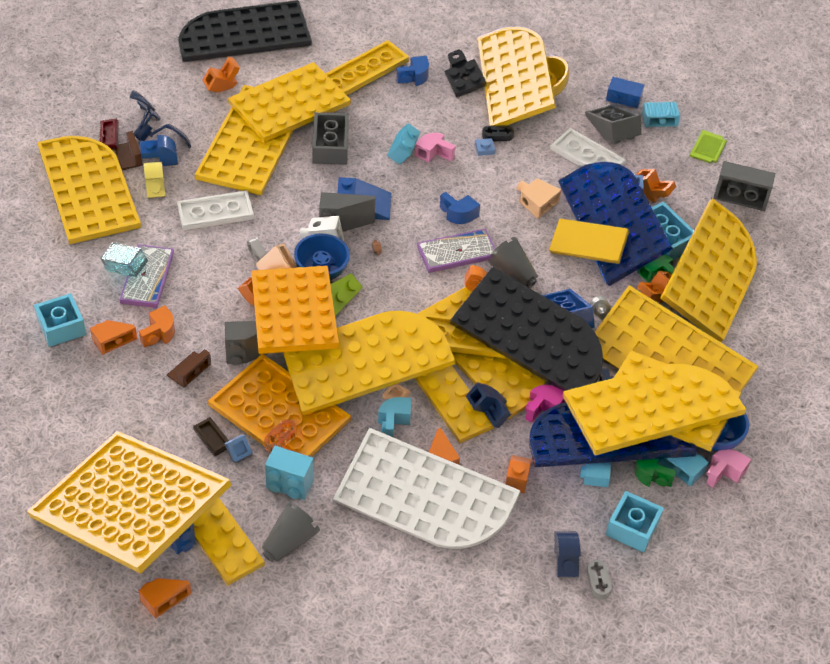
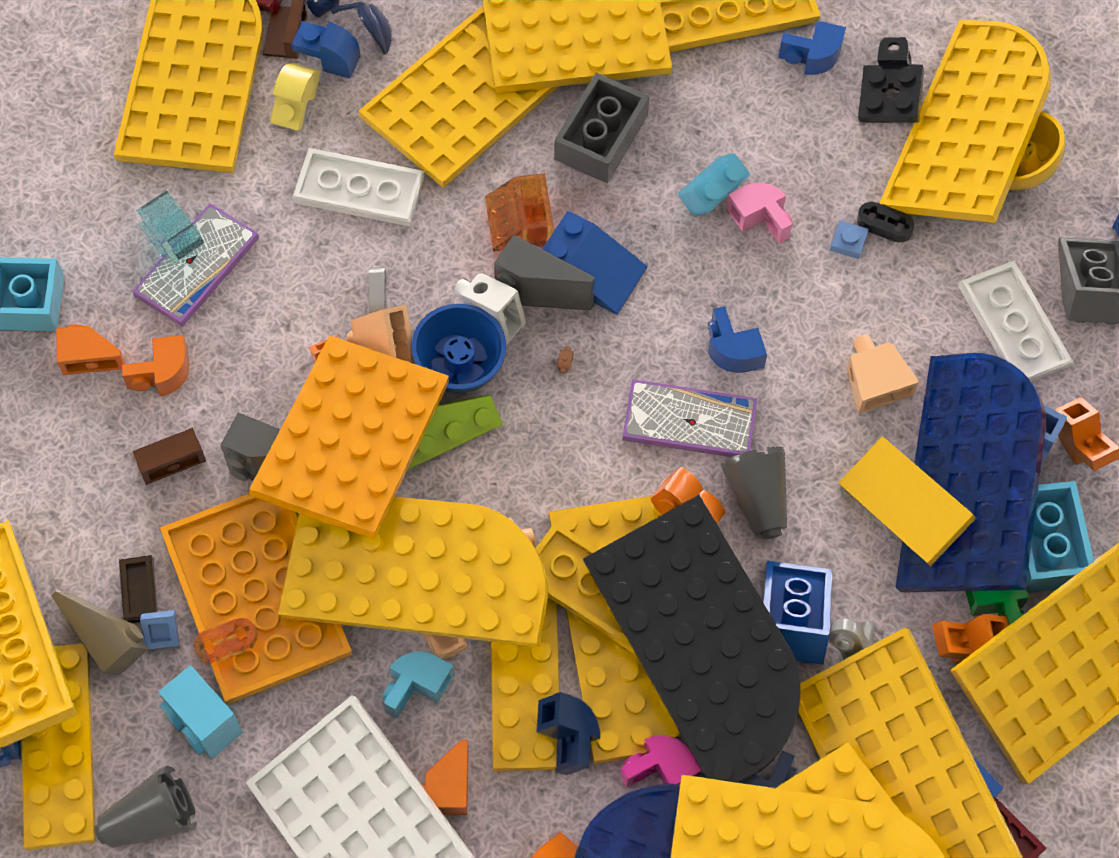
camera: 30 degrees right, 15 degrees up
(210, 458) = (108, 638): none -> dark tan slope
(308, 187) = (520, 209): none -> clear orange slope

